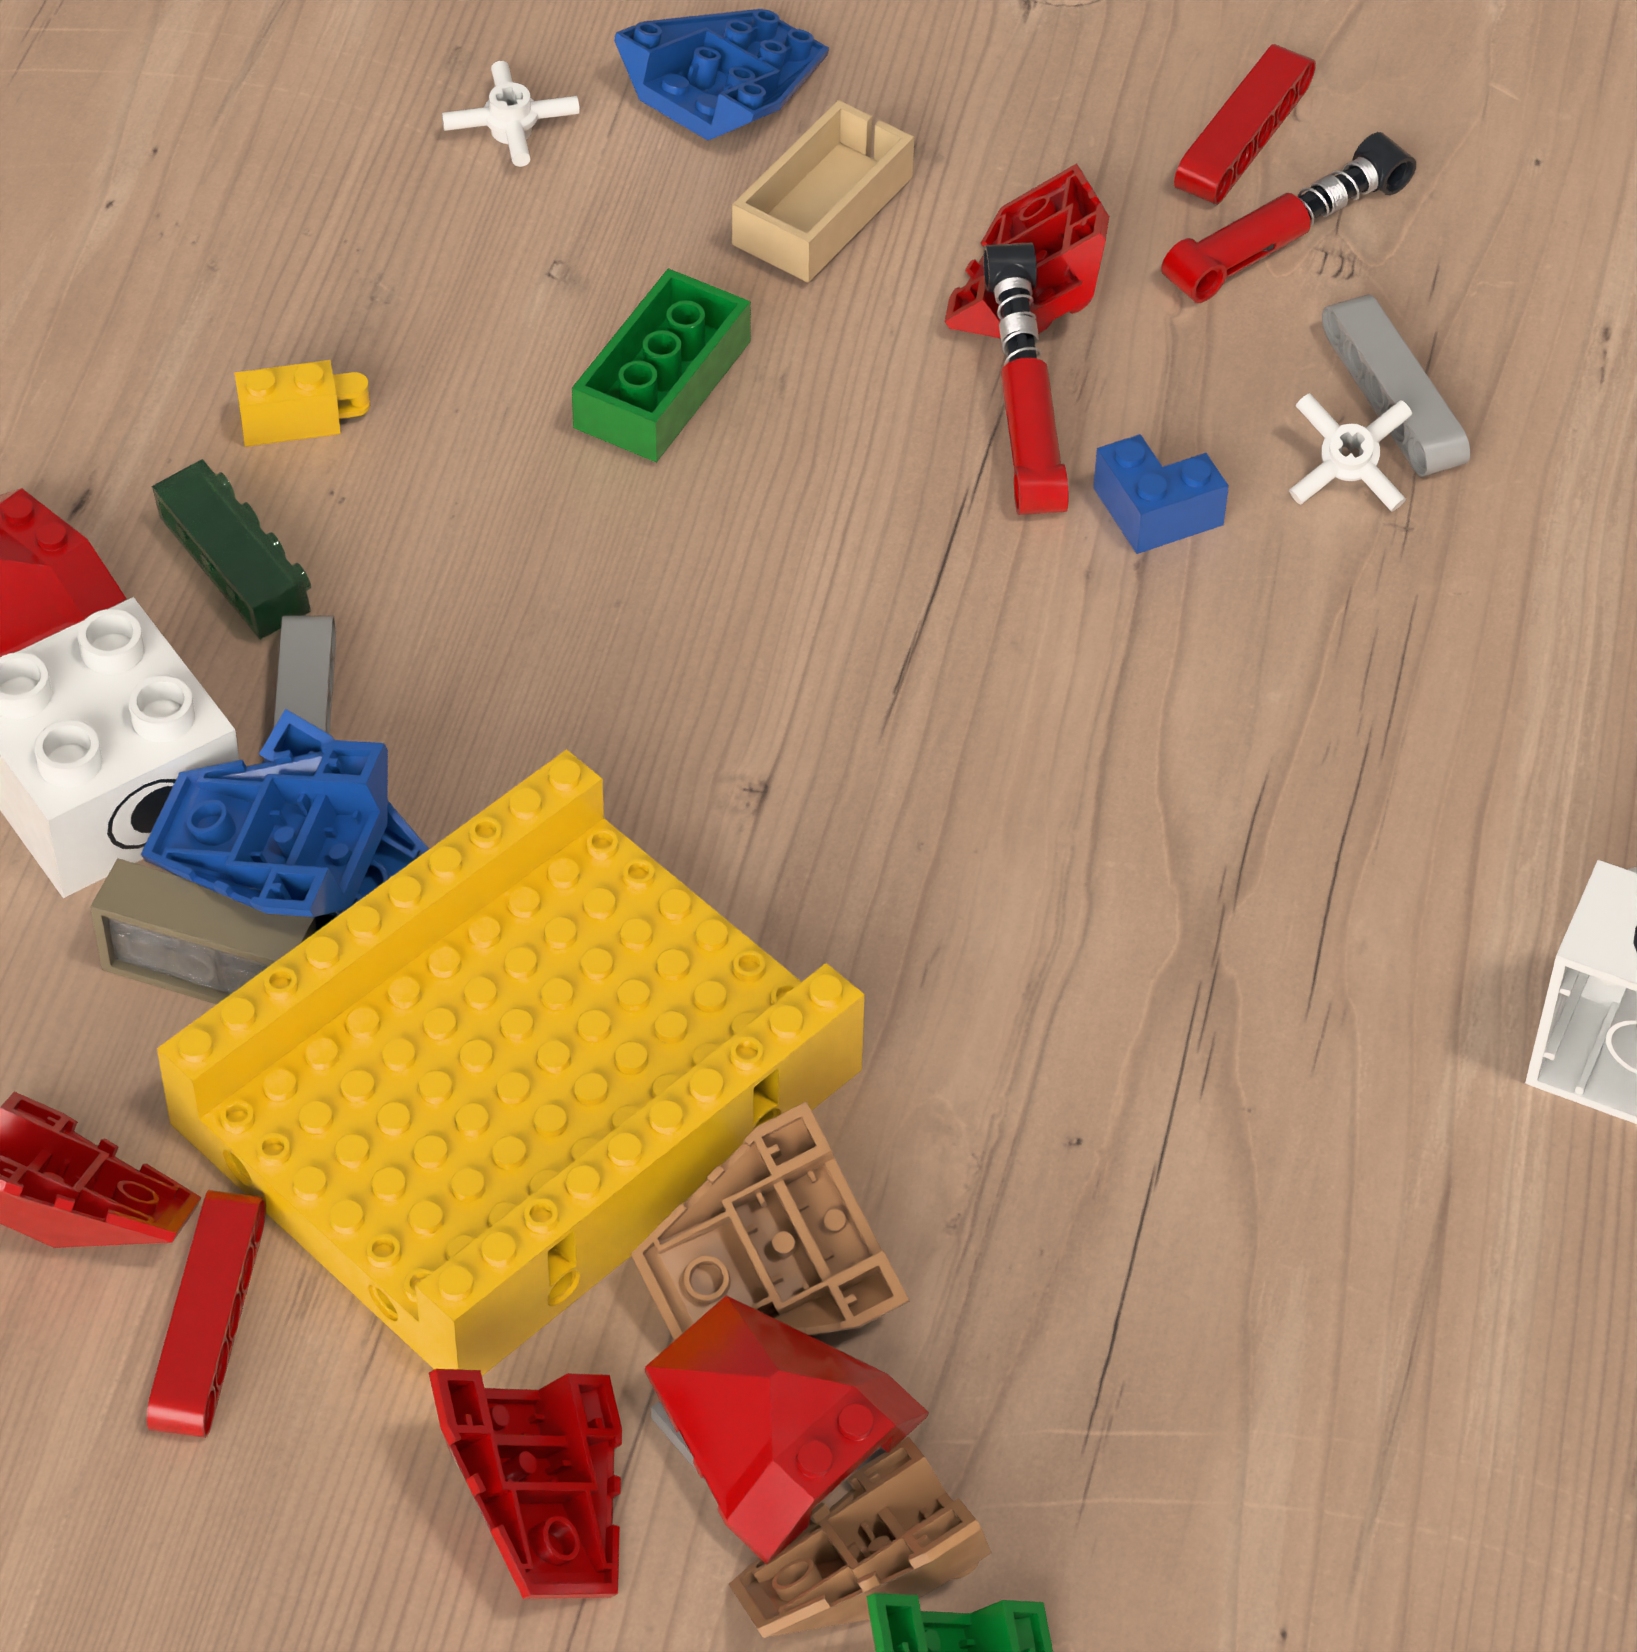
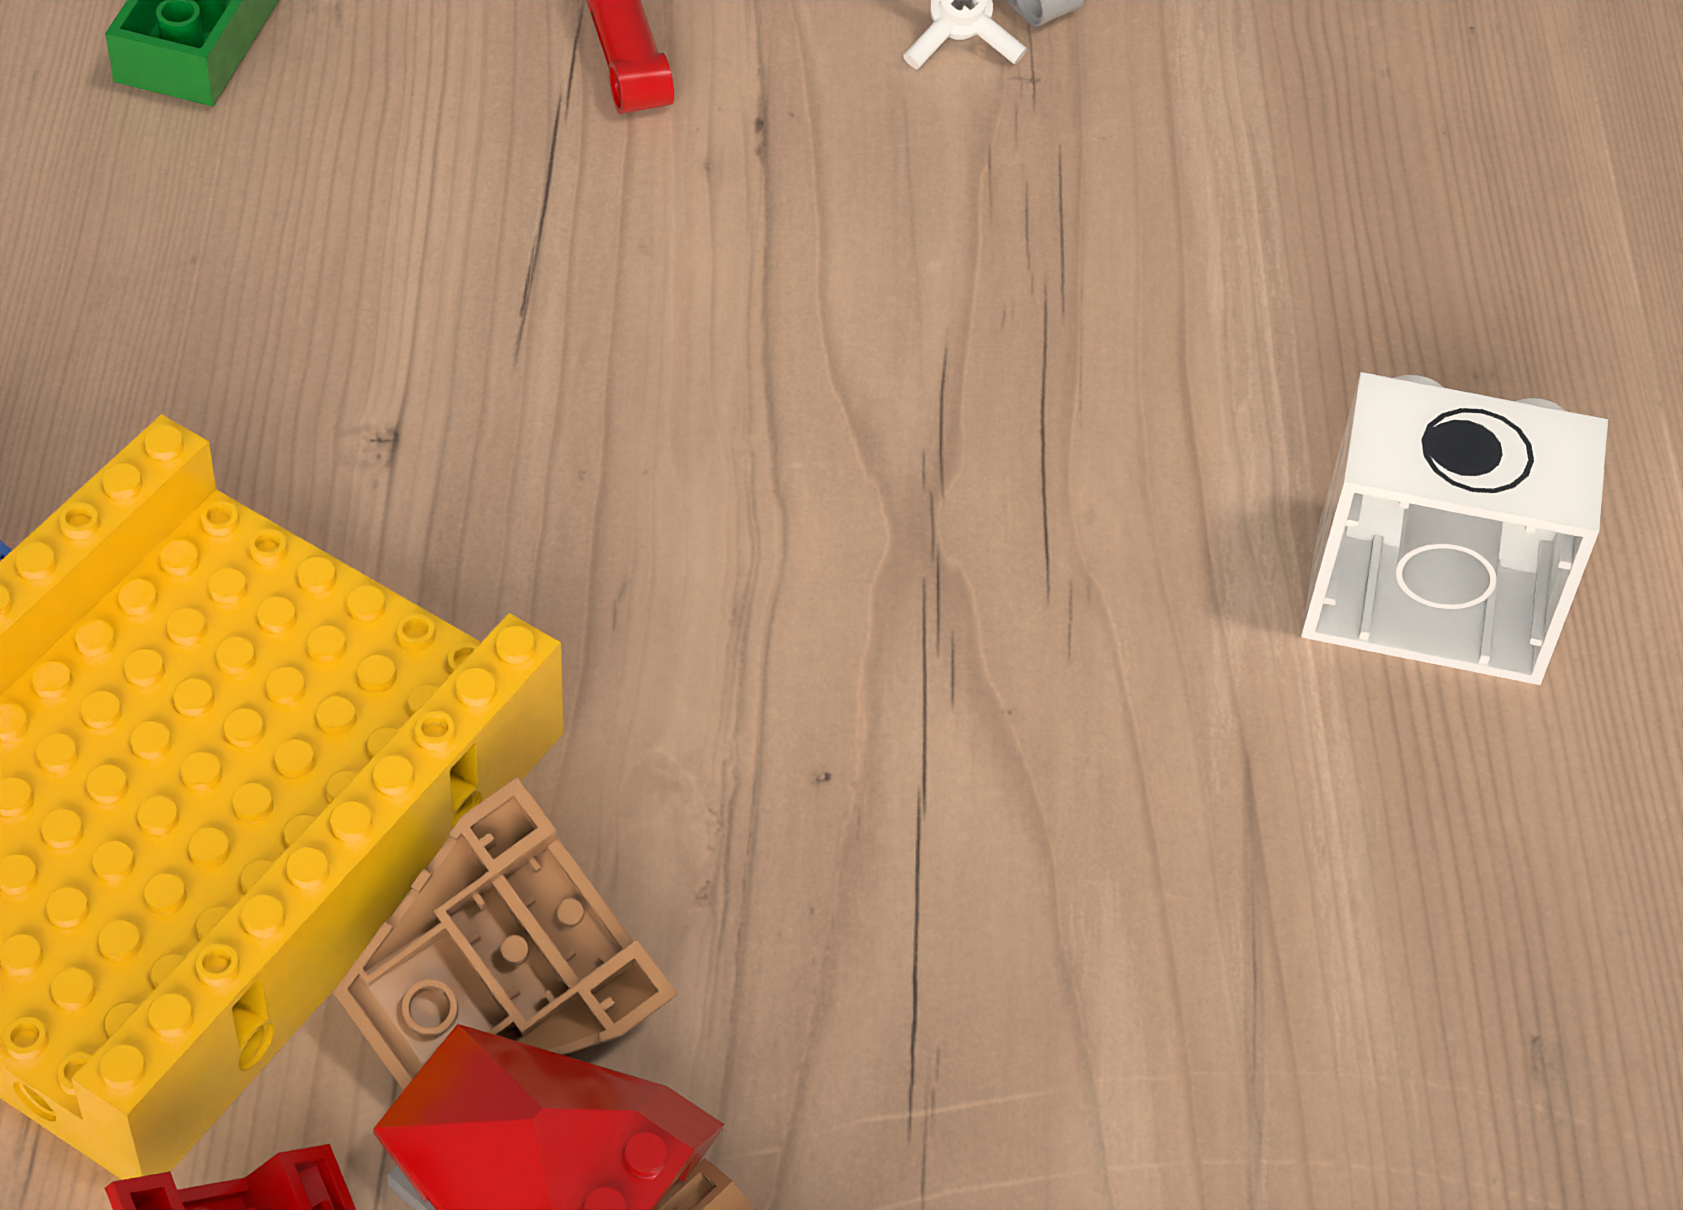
camera: 15 degrees left, 0 degrees up
(1158, 502) = (767, 80): blue brick -> none

